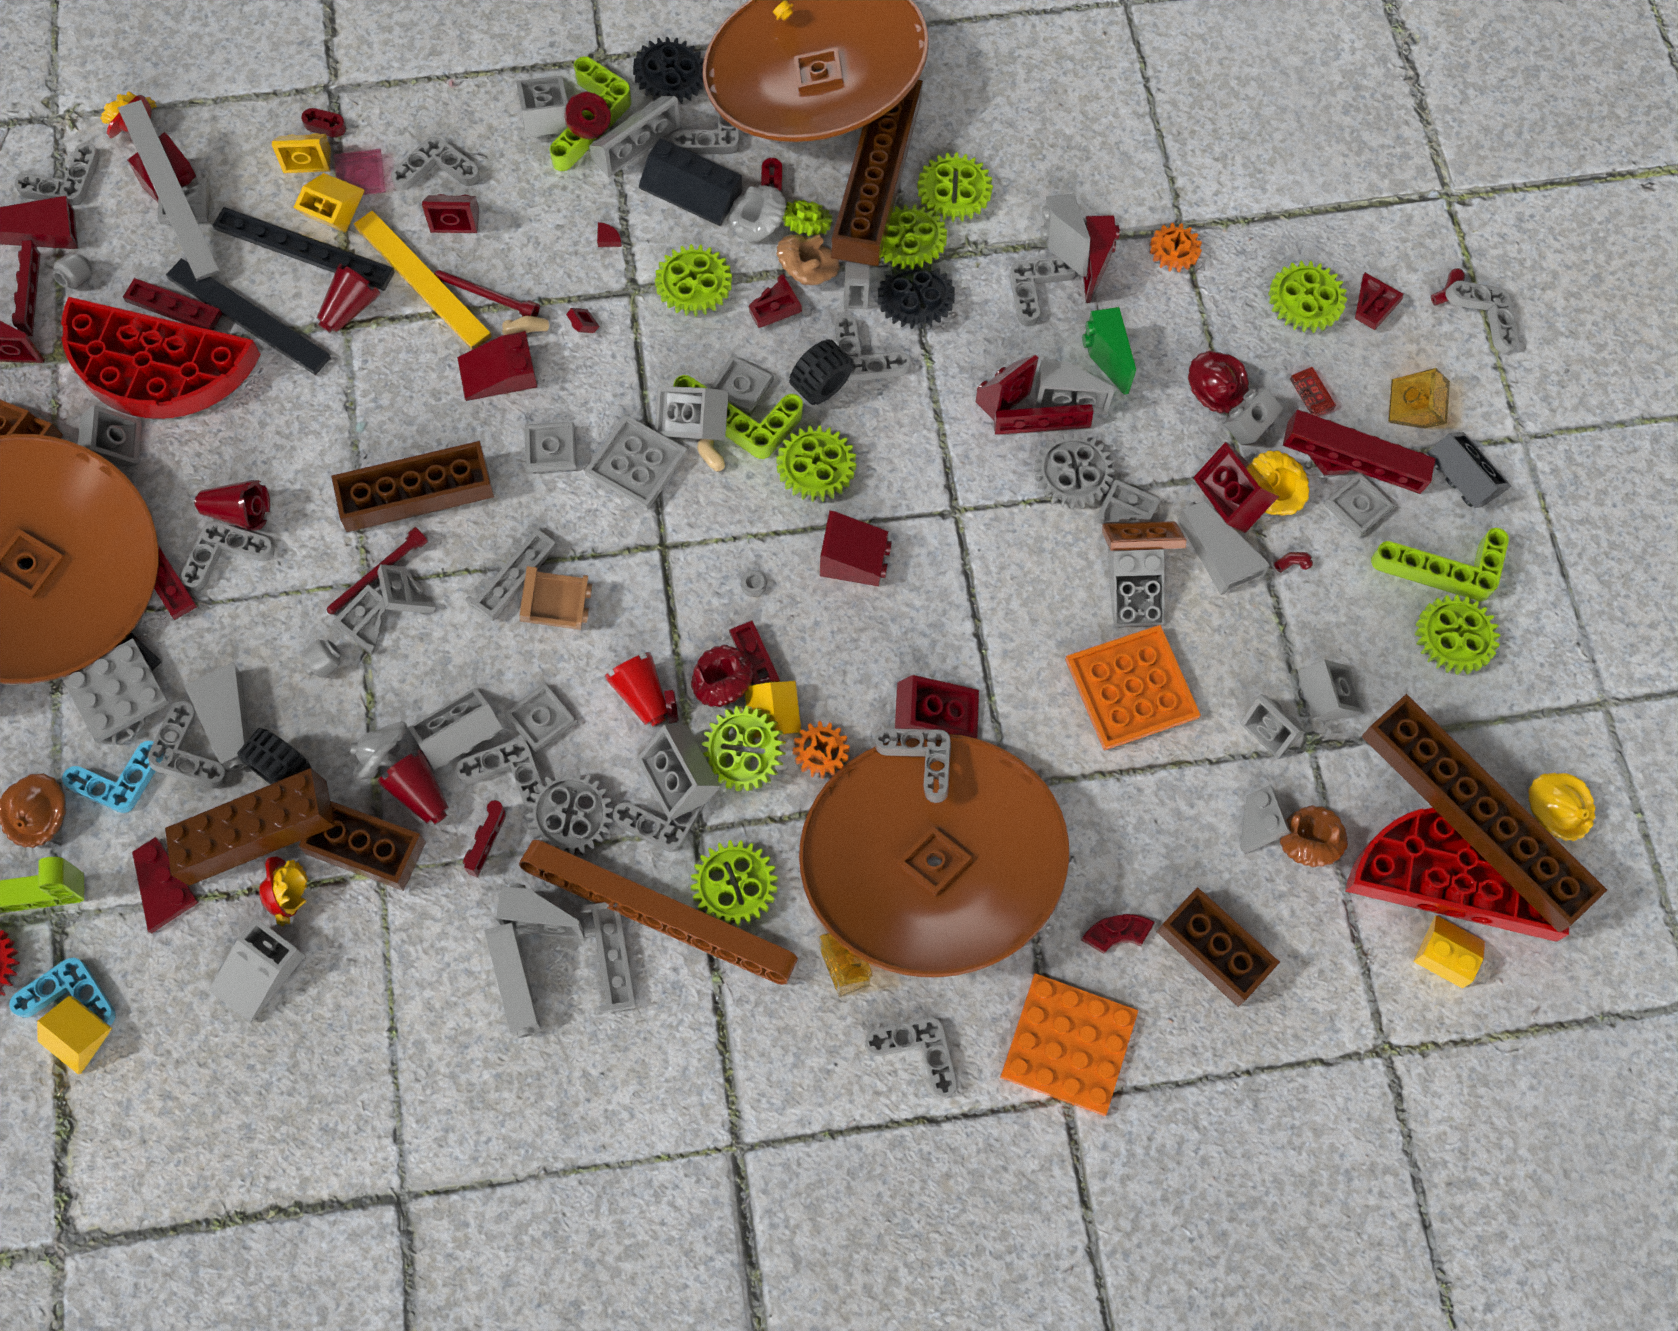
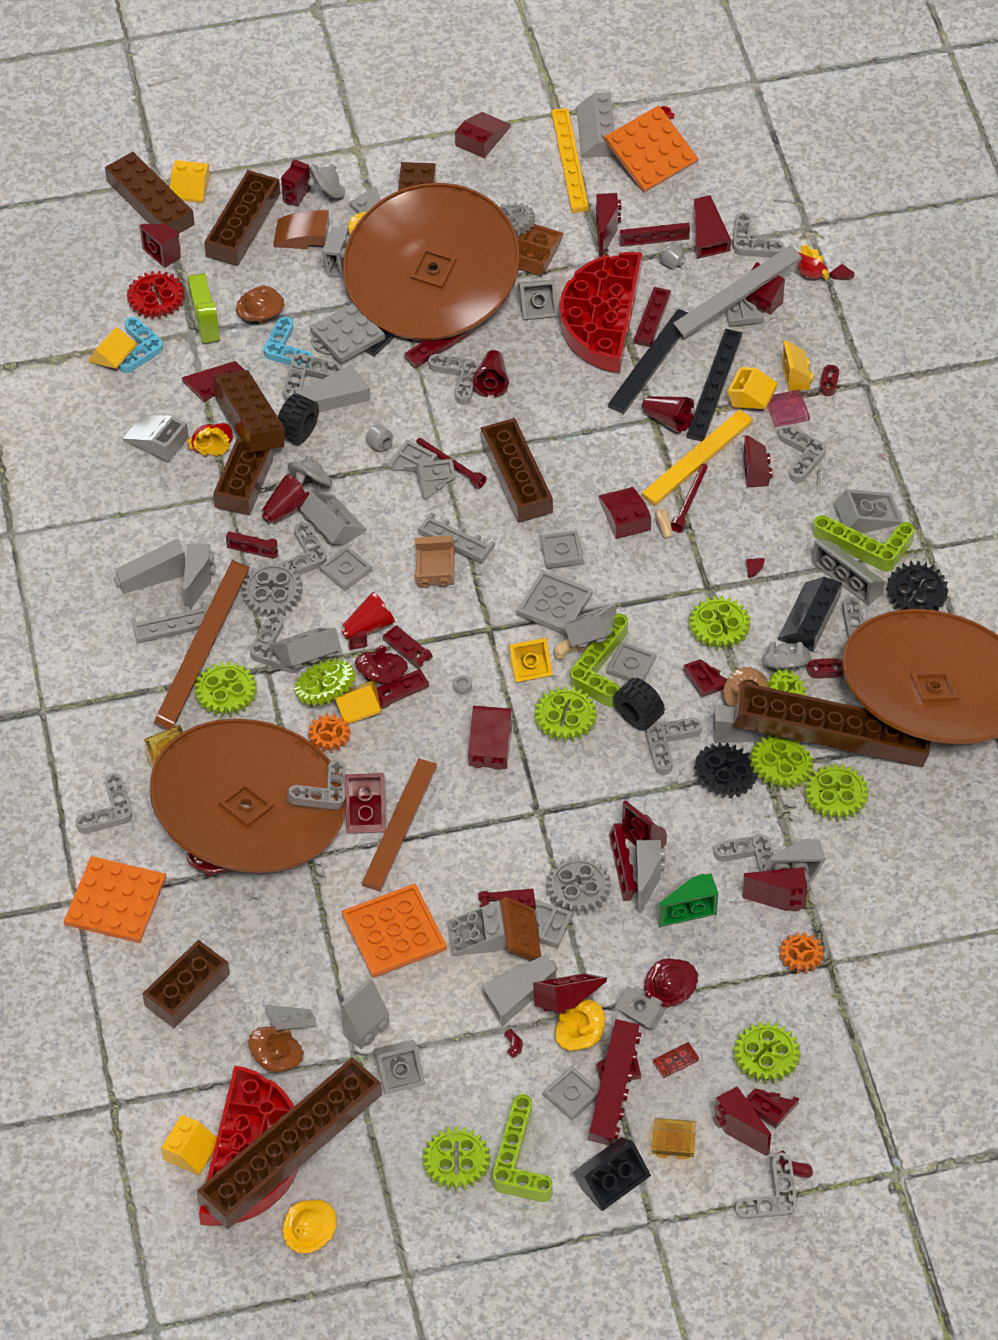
camera: 90 degrees right, 15 degrees down
(146, 86) = (842, 272): none -> dark red tile
(578, 124) = (857, 542): dark red tile -> none
(582, 320) = (672, 556): dark red plate -> none
(685, 646) = (407, 646): none -> dark red plate
(731, 497) = (530, 660): none -> yellow slope
(783, 10) = (987, 656): yellow plate -> none
(968, 672) = (399, 825): none -> dark orange tile
(1089, 553) = (523, 896): none -> dark red plate
(1116, 930) = (199, 924): dark red tile -> none
(1401, 326) = (741, 1121): none -> dark red slope

